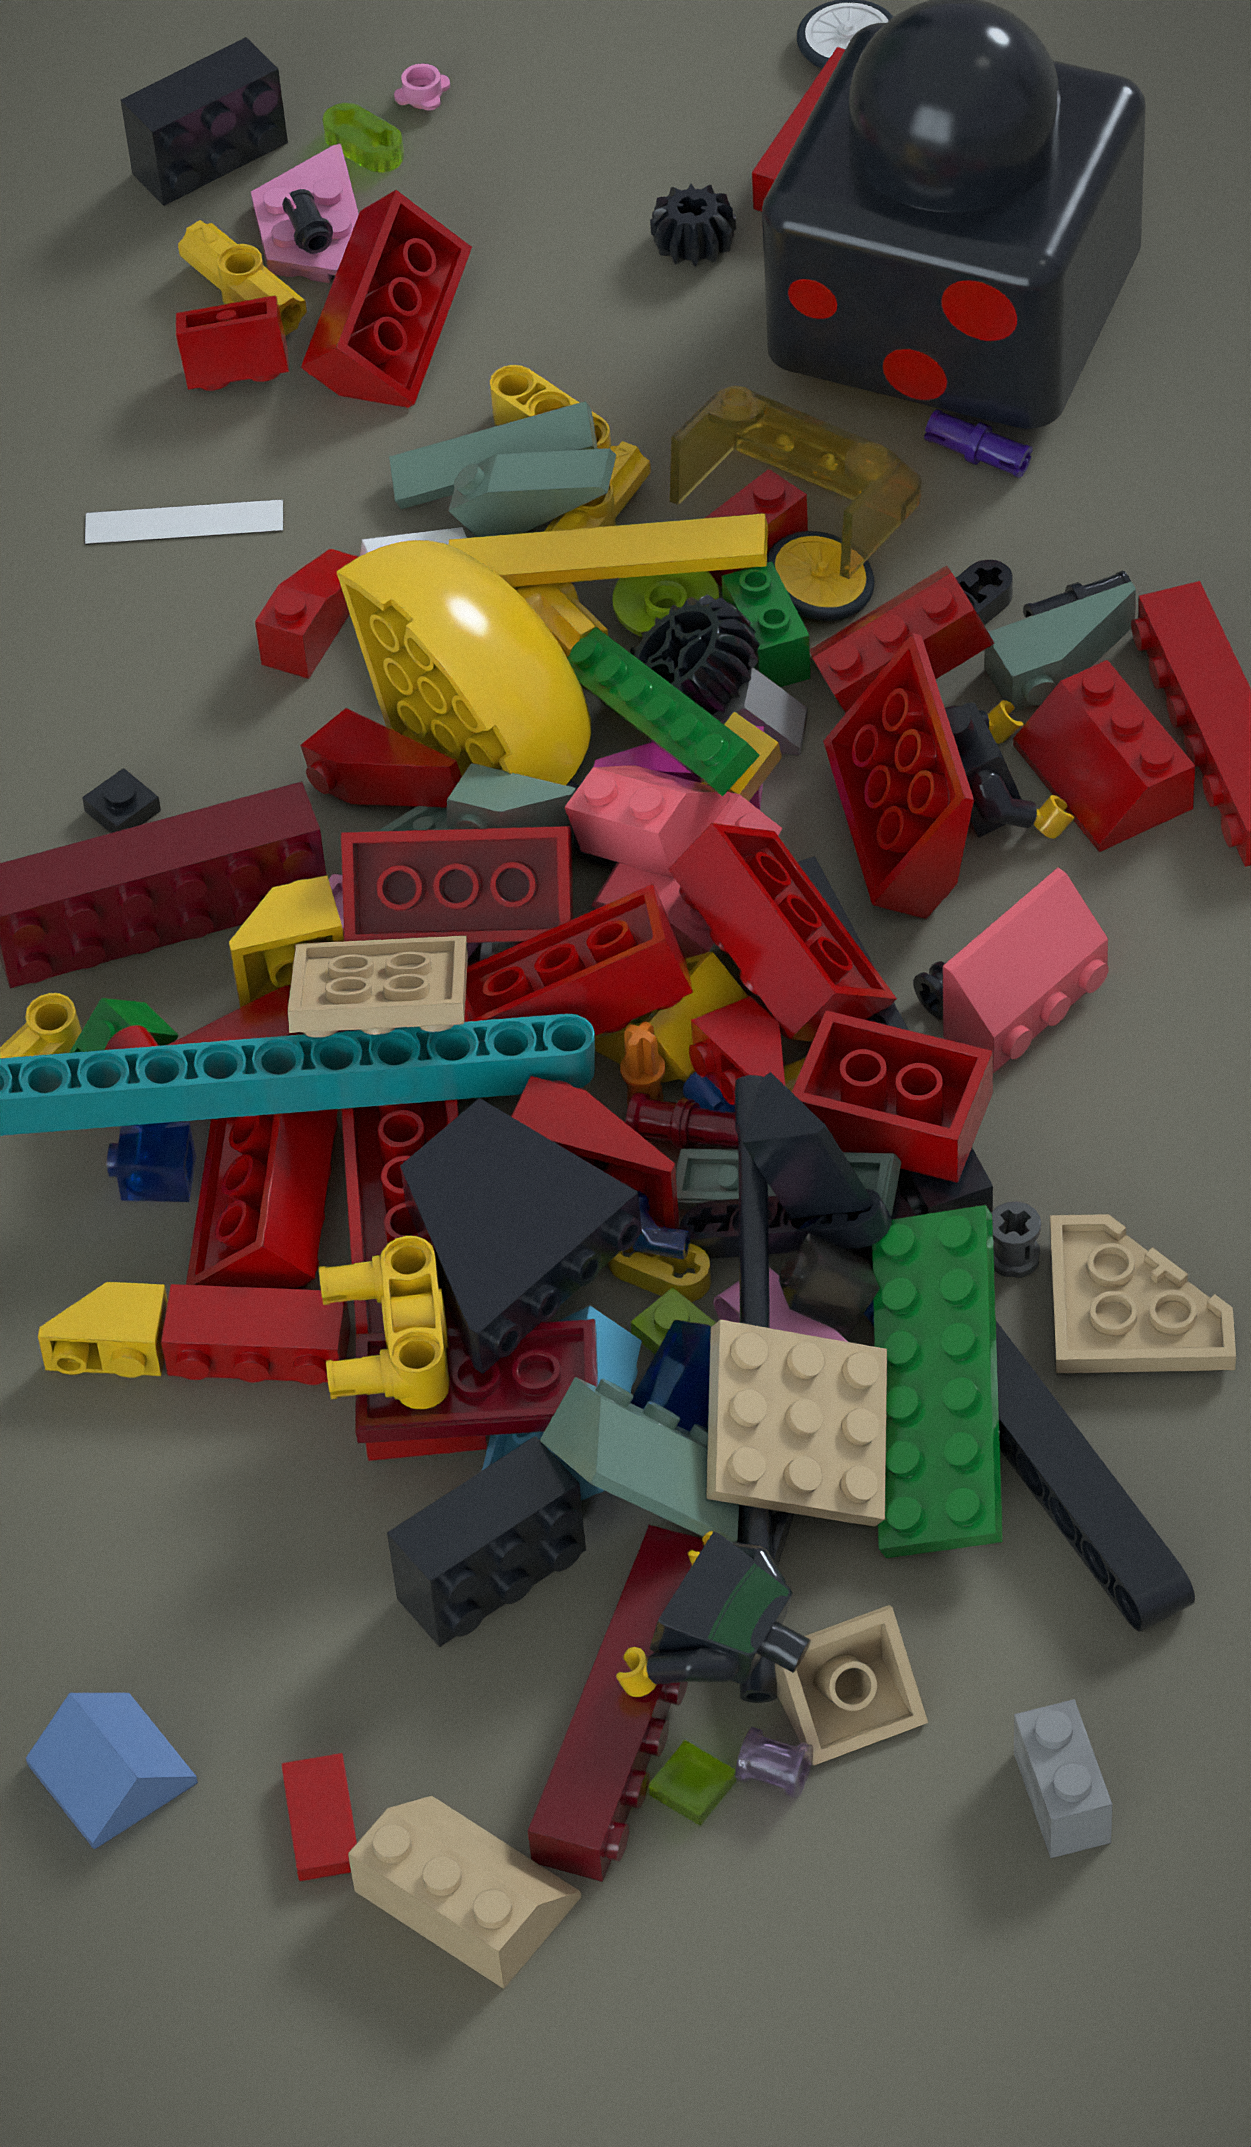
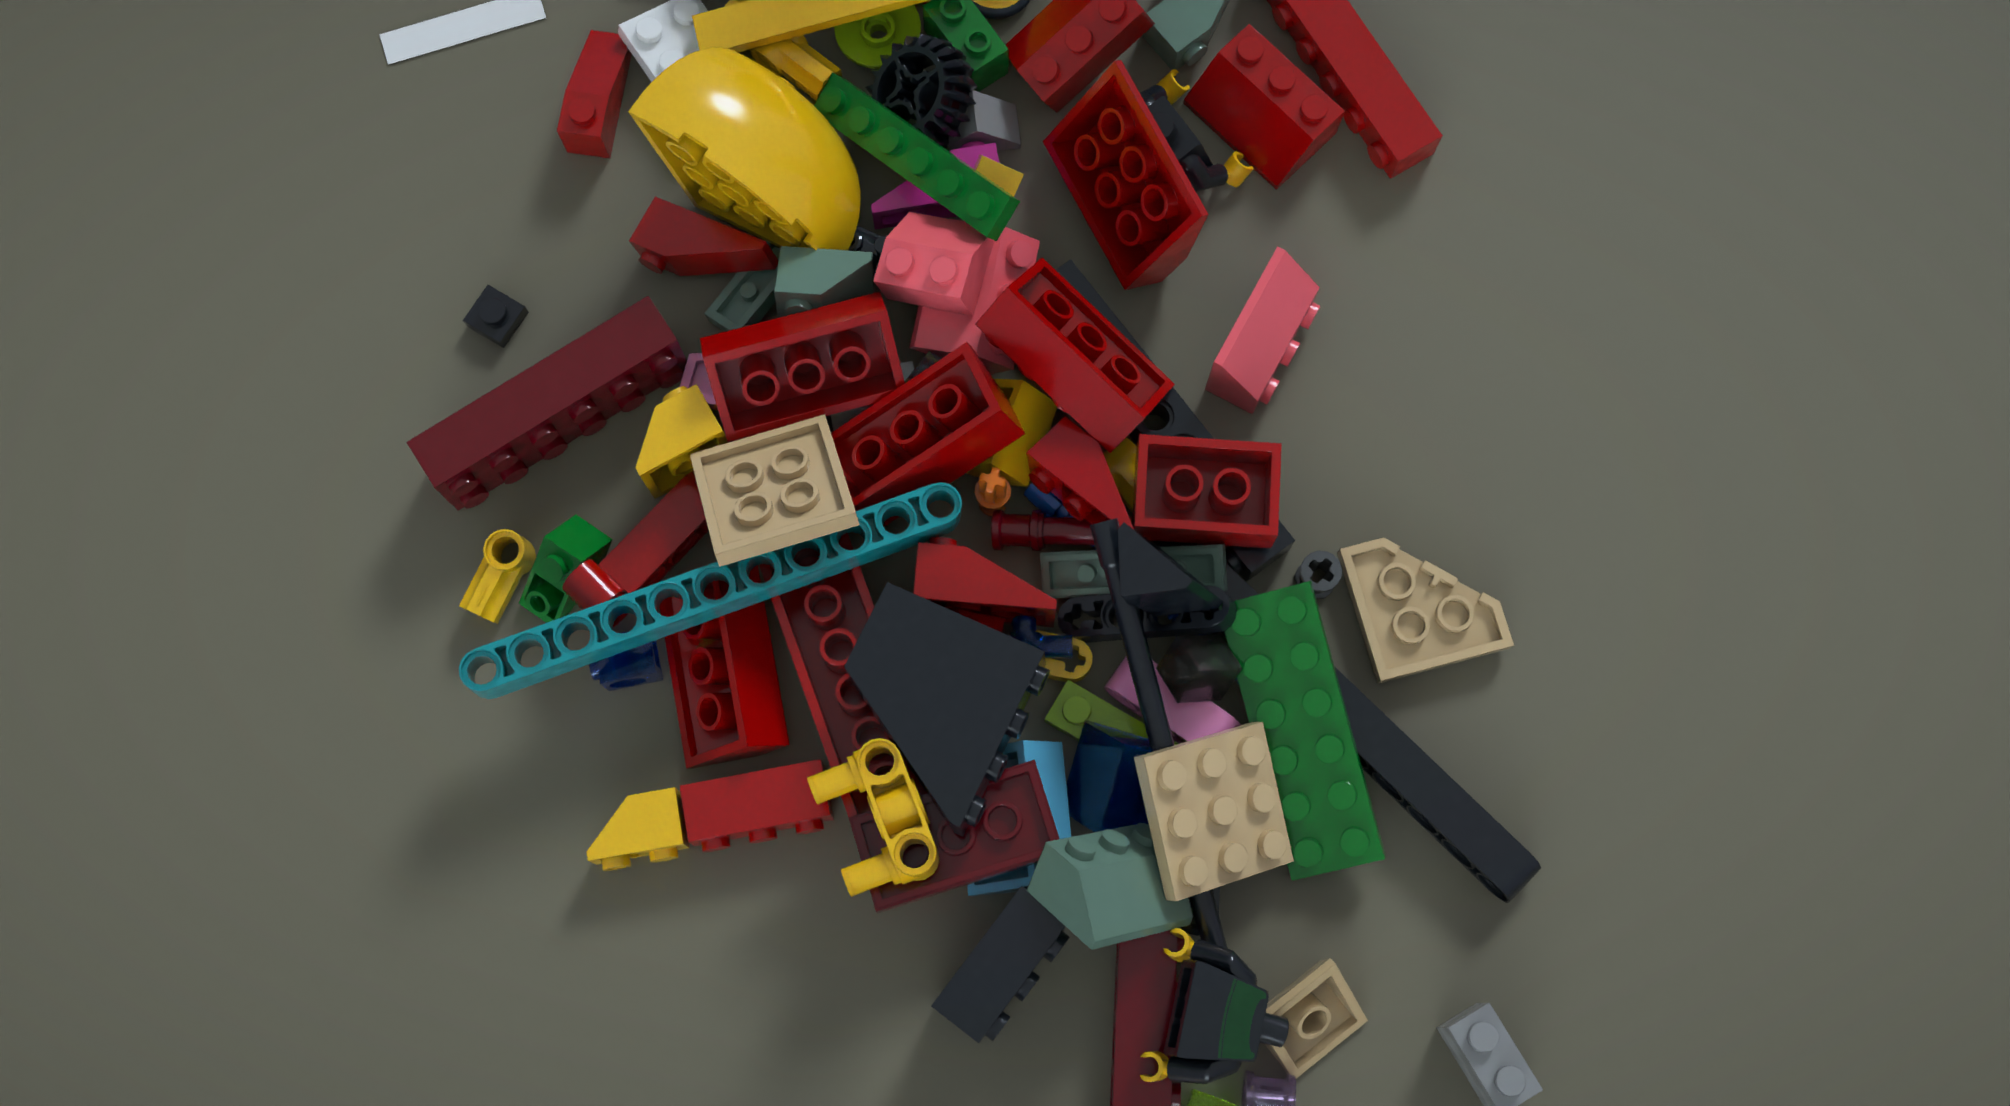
camera: 20 degrees left, 25 degrees up
(930, 989) = (1196, 354): black bush -> none

